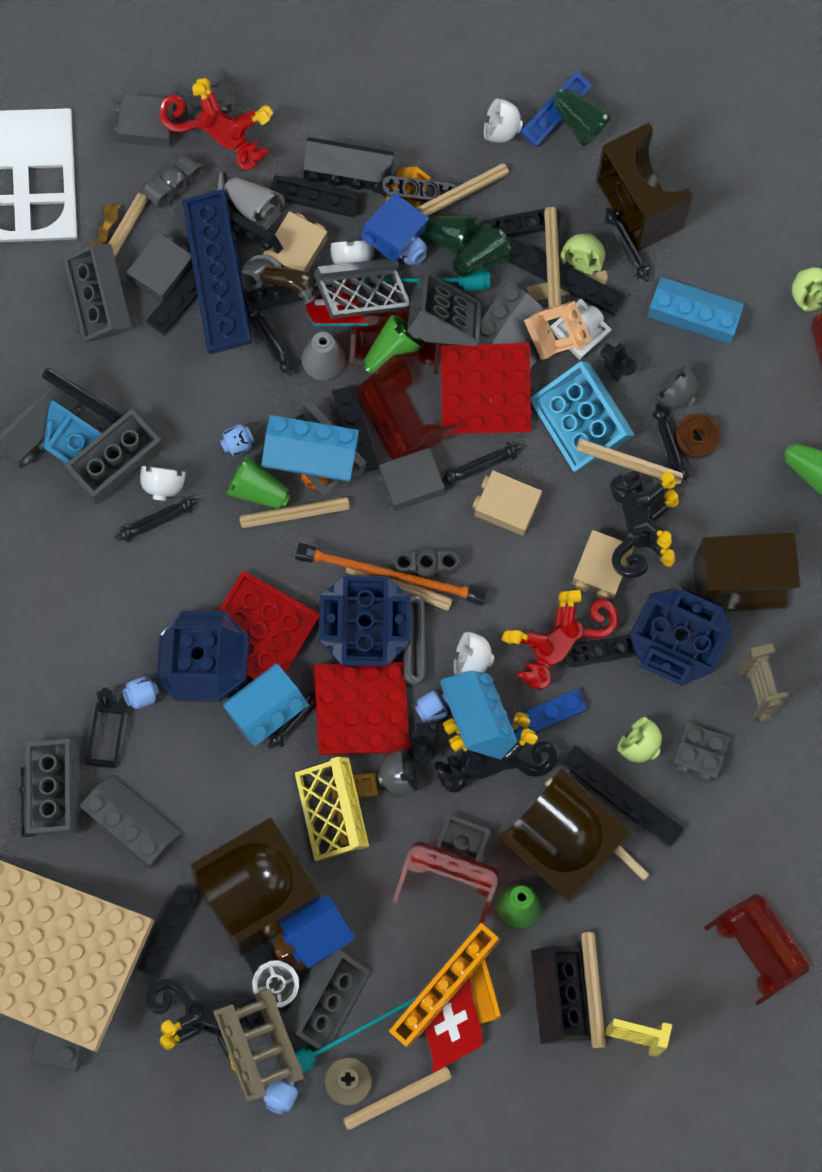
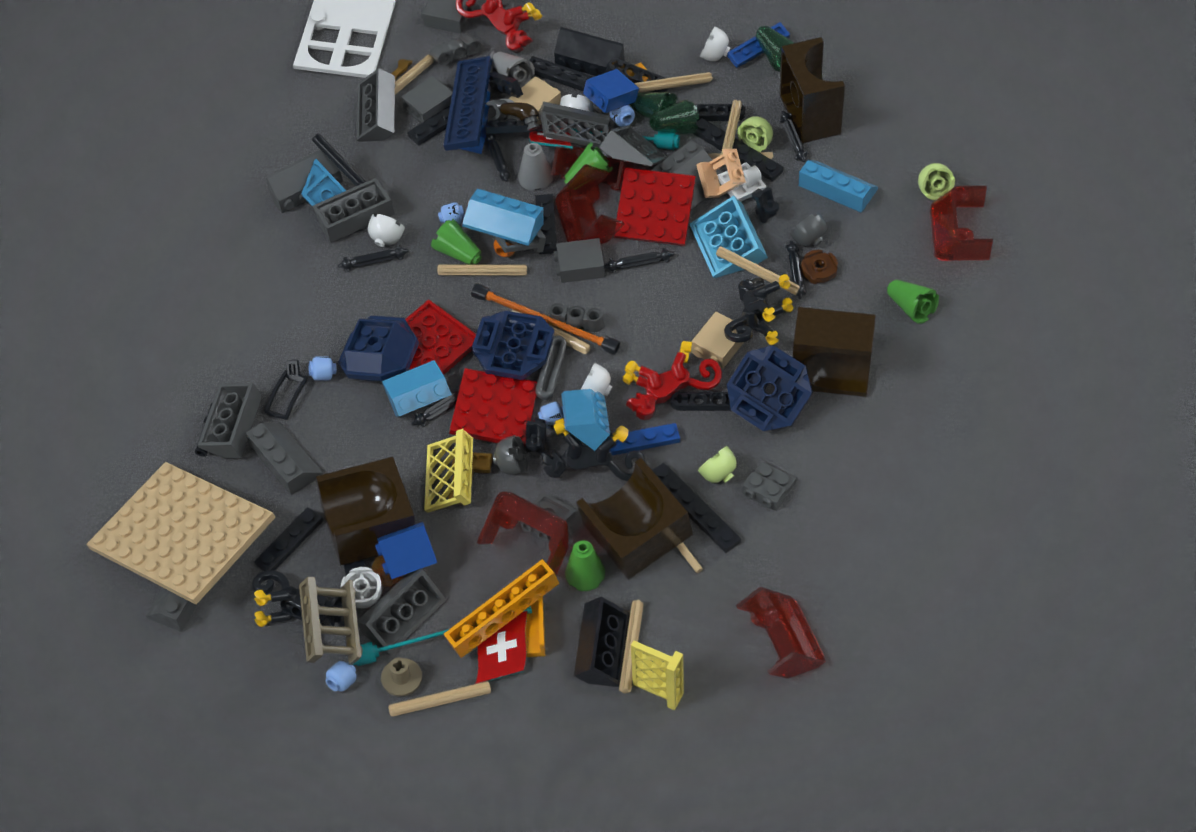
camera: 20 degrees right, 20 degrees down
(507, 502) = (653, 287): tan brick -> none
(758, 670) = (828, 430): dark tan fence -> none

